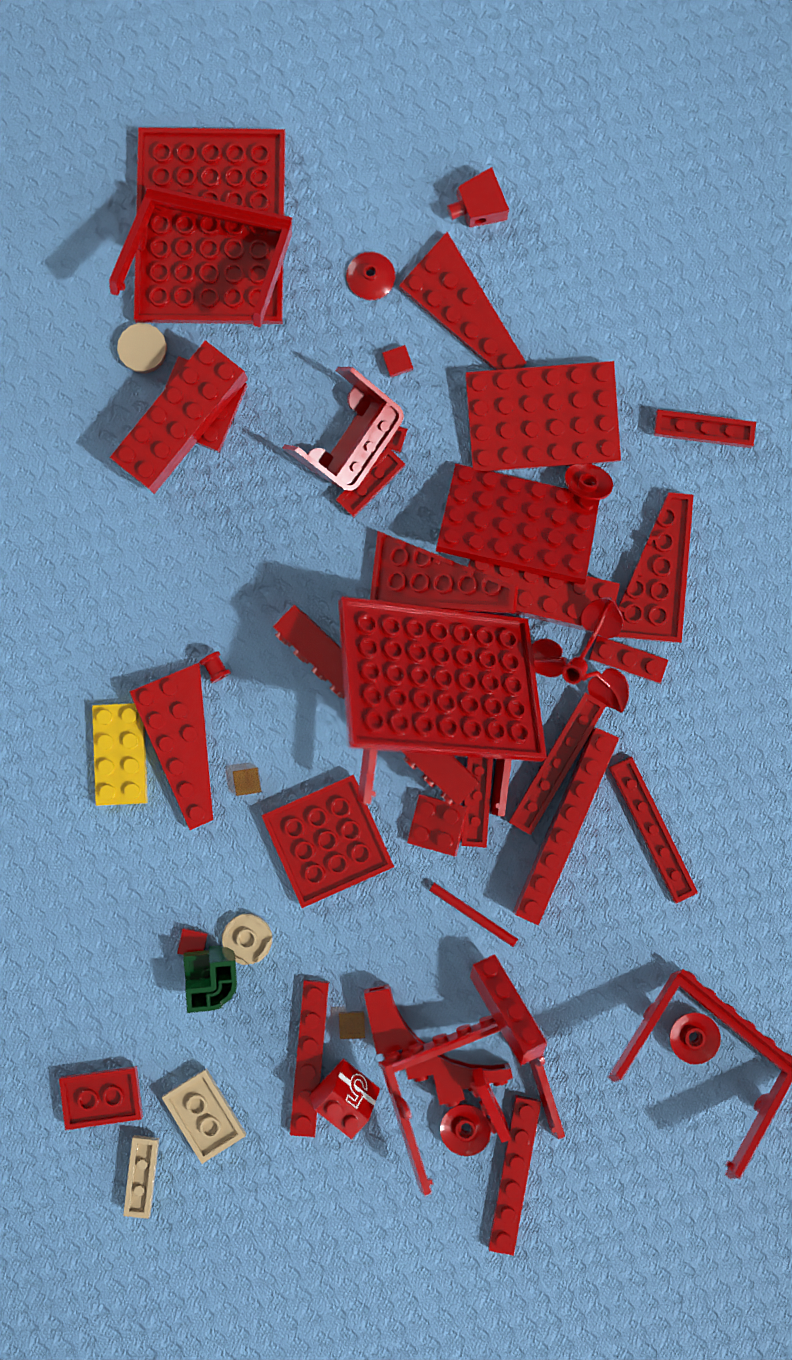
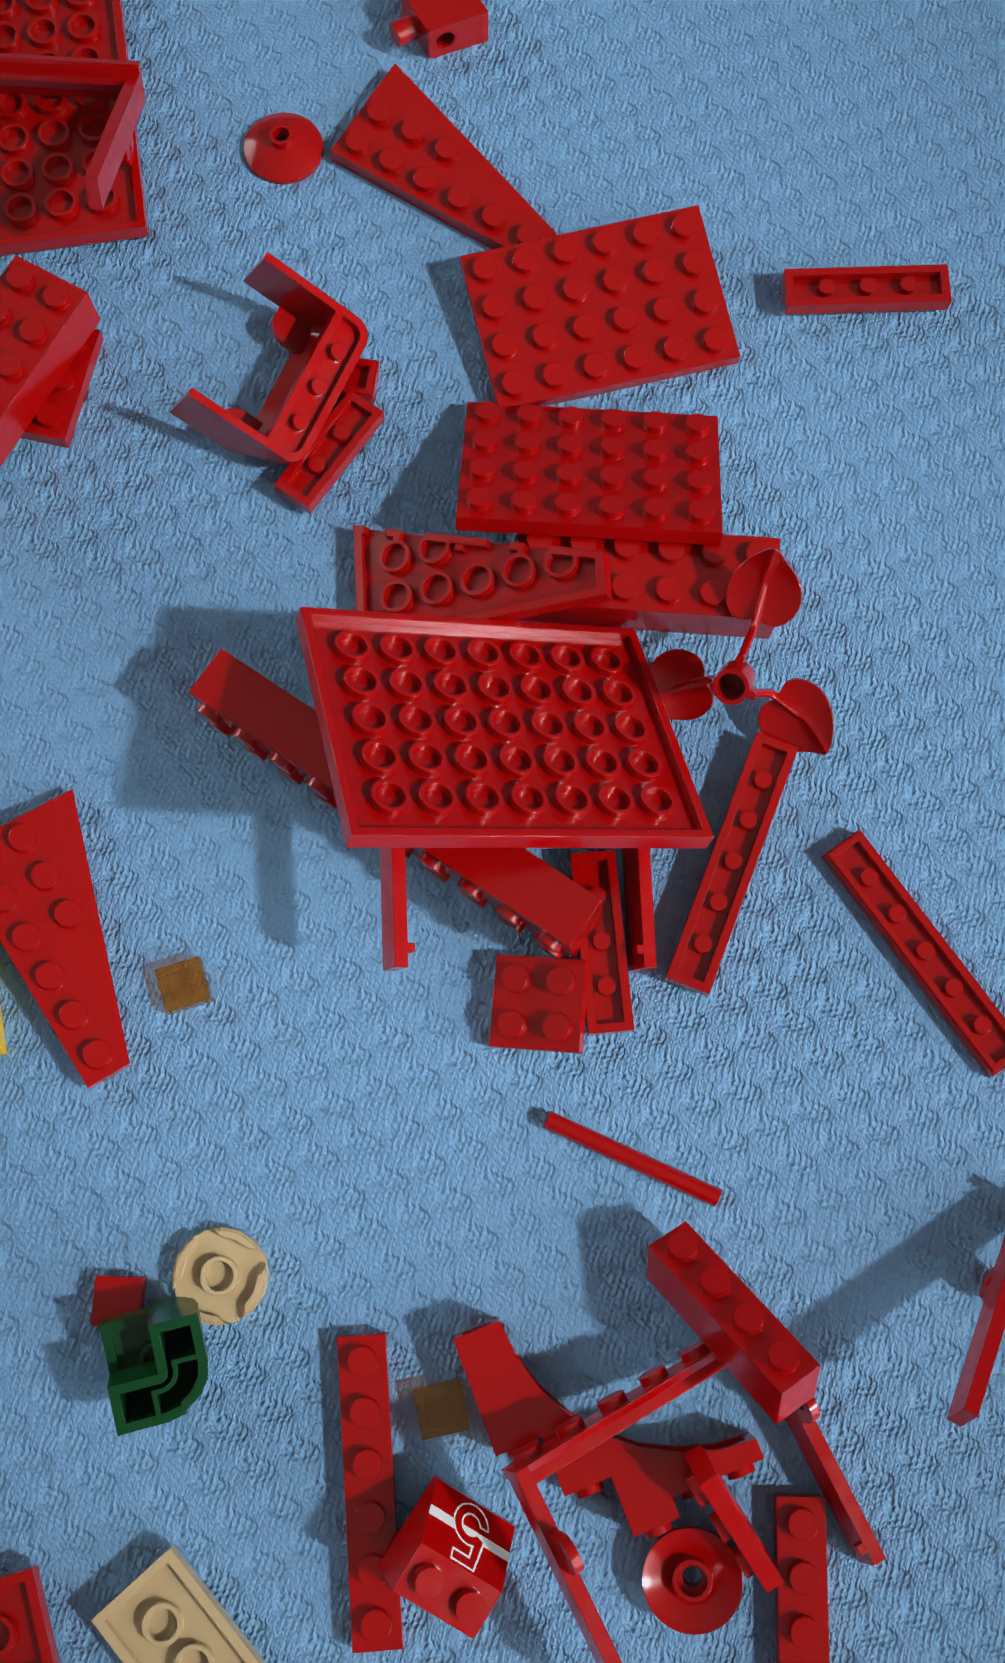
camera: 10 degrees left, 10 degrees down
(215, 667) = (100, 792): red bush -> none
(327, 841) = (344, 1068): red plate -> none
(397, 361) = (346, 263): red tile -> none
(565, 826) = (768, 970): red brick -> none
(588, 481) = (694, 394): red dish -> none
(628, 659) = (833, 670): red plate -> none
(657, 588) = (845, 529): red wing -> none

